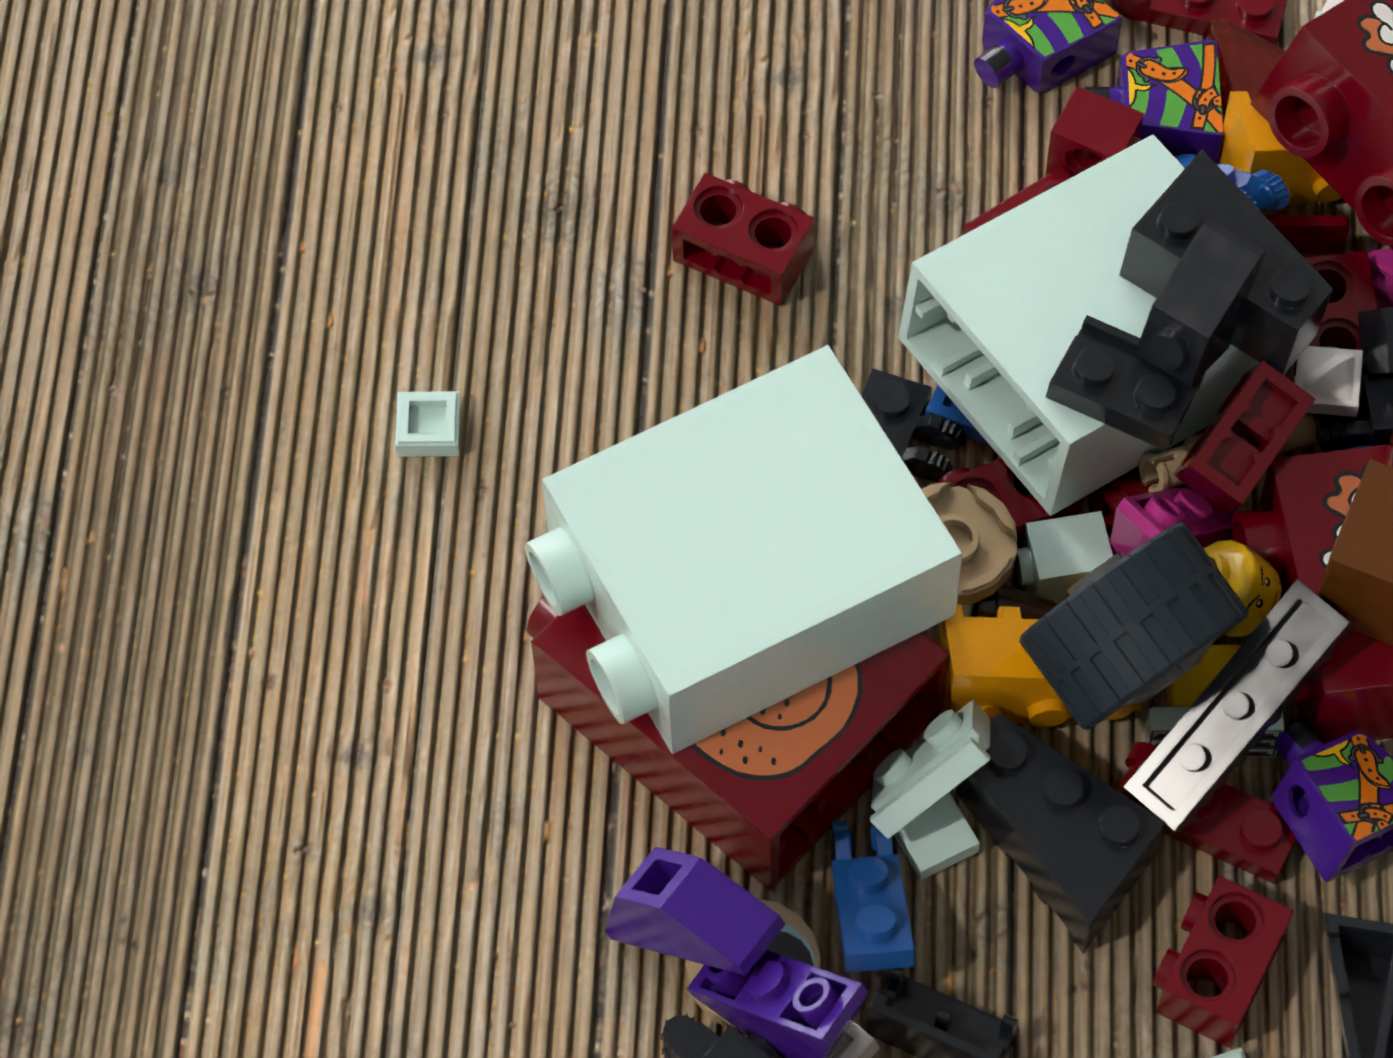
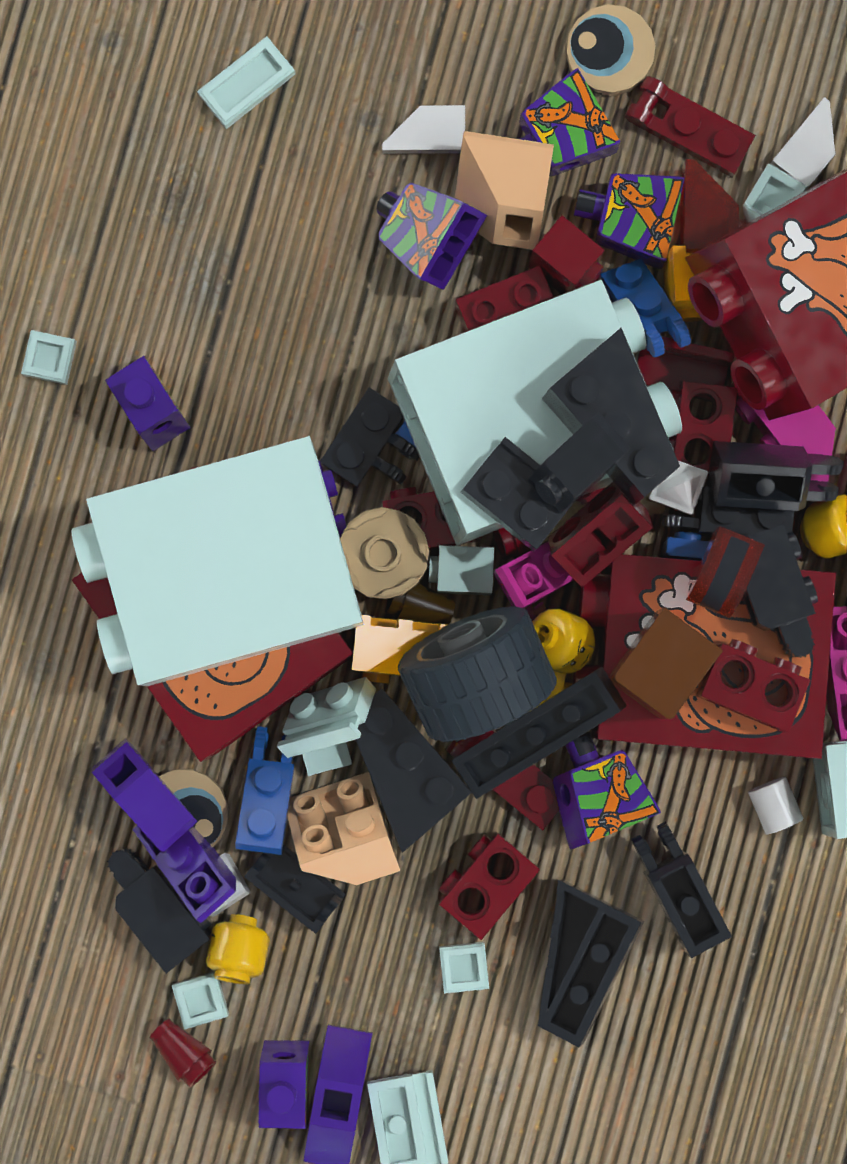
camera: 10 degrees right, 25 degrees up
(568, 420) = (147, 403): none -> dark purple torso
(618, 63) = (246, 82): none -> light aqua tile
(737, 249) = (294, 267): dark red brick -> none
(870, 70) = (429, 131): none -> white tile
(904, 159) = (428, 231): none -> torso
(985, 95) = (506, 183): none -> light nougat slope
(1000, 928) = (342, 832): none -> light nougat slope

